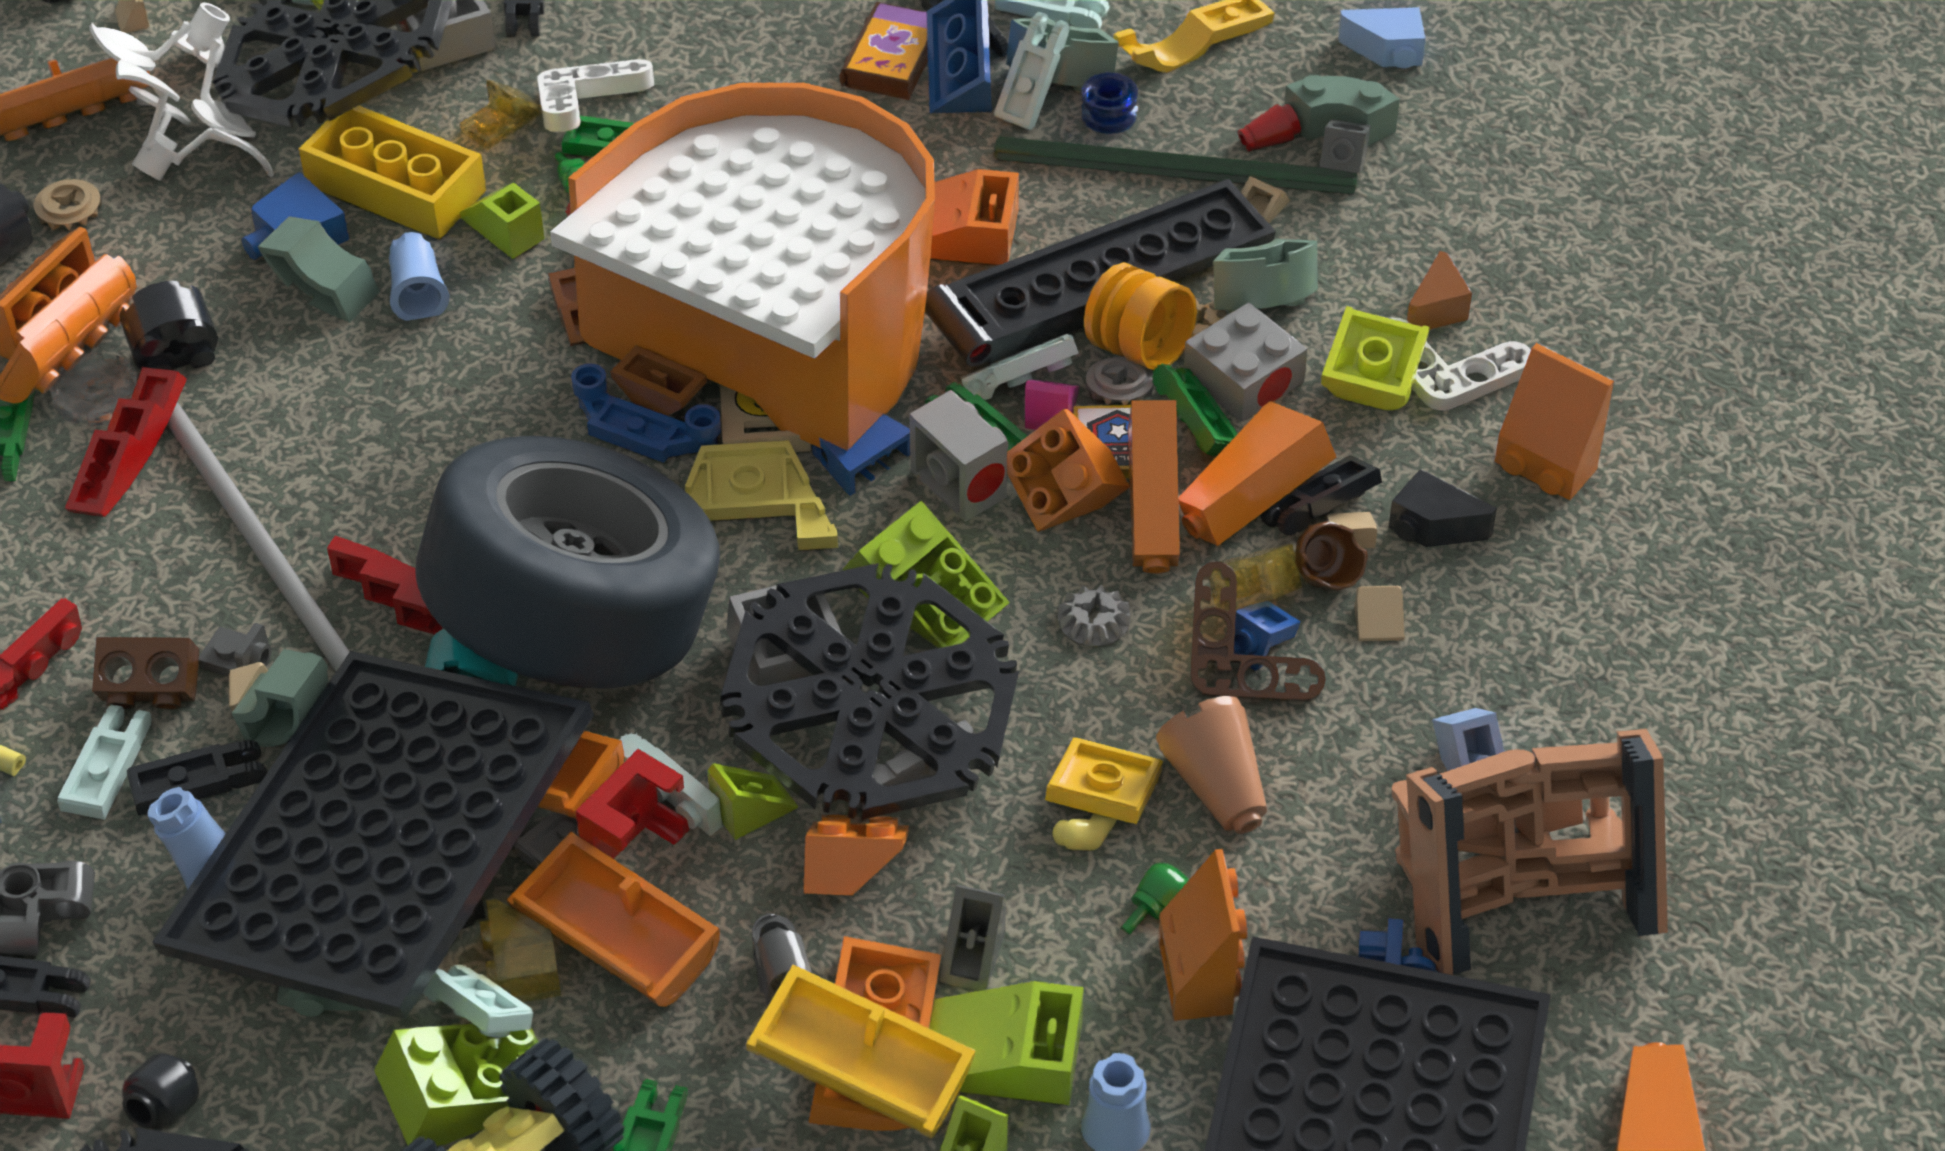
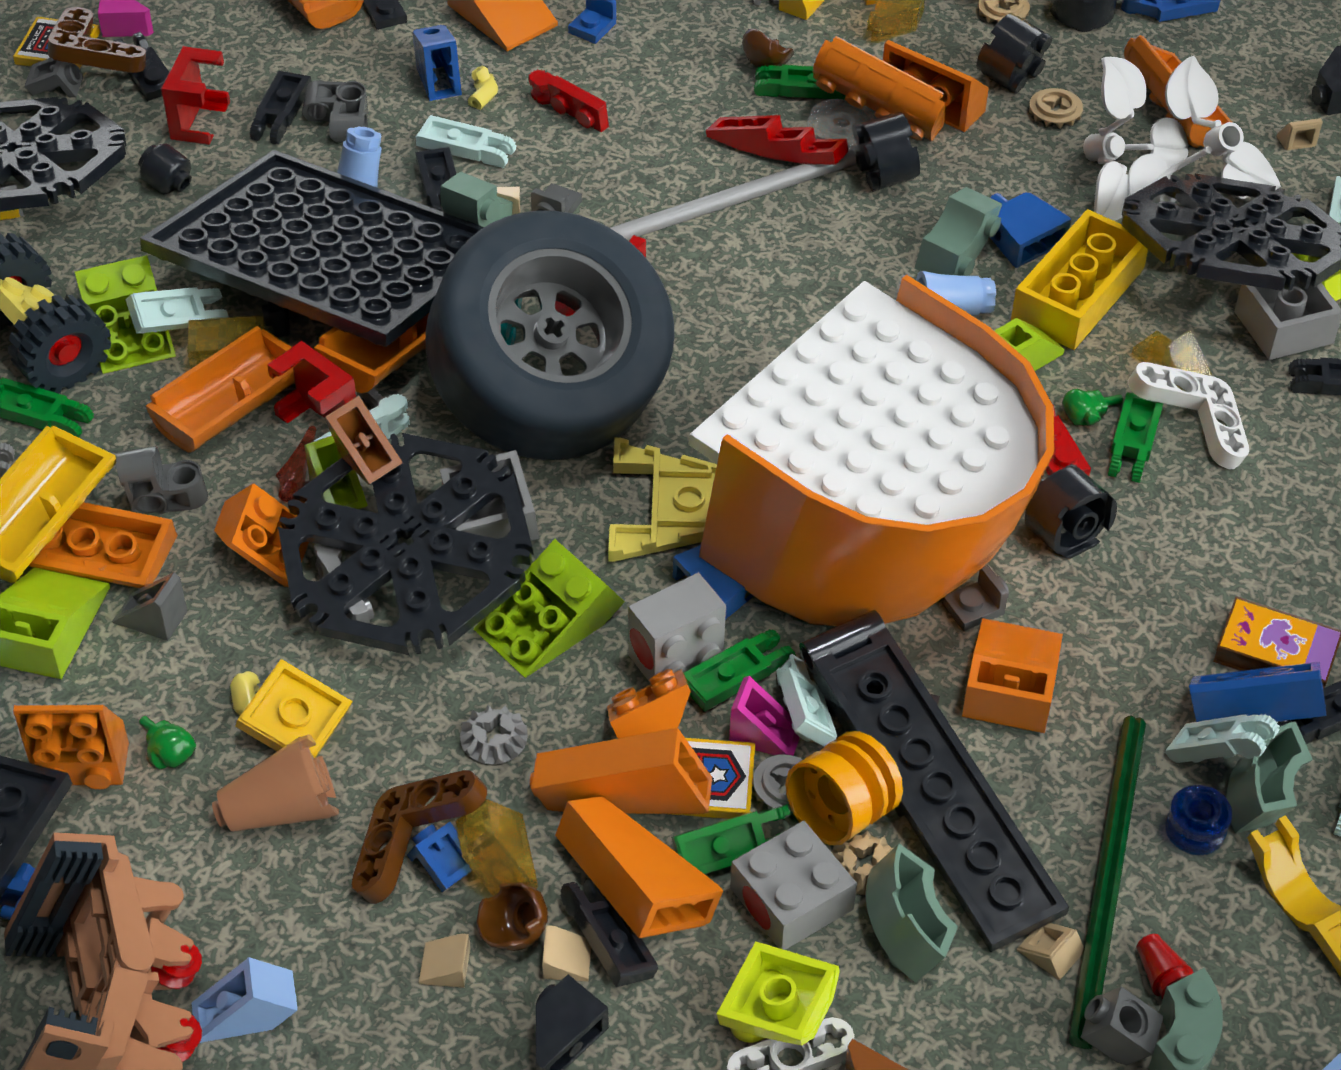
camera: 95 degrees right, 0 degrees up
(148, 660) = (536, 151): reddish brown brick -> none
(733, 847) = (294, 471): none -> clear red piece
(764, 709) = (362, 441): none -> dark orange slope

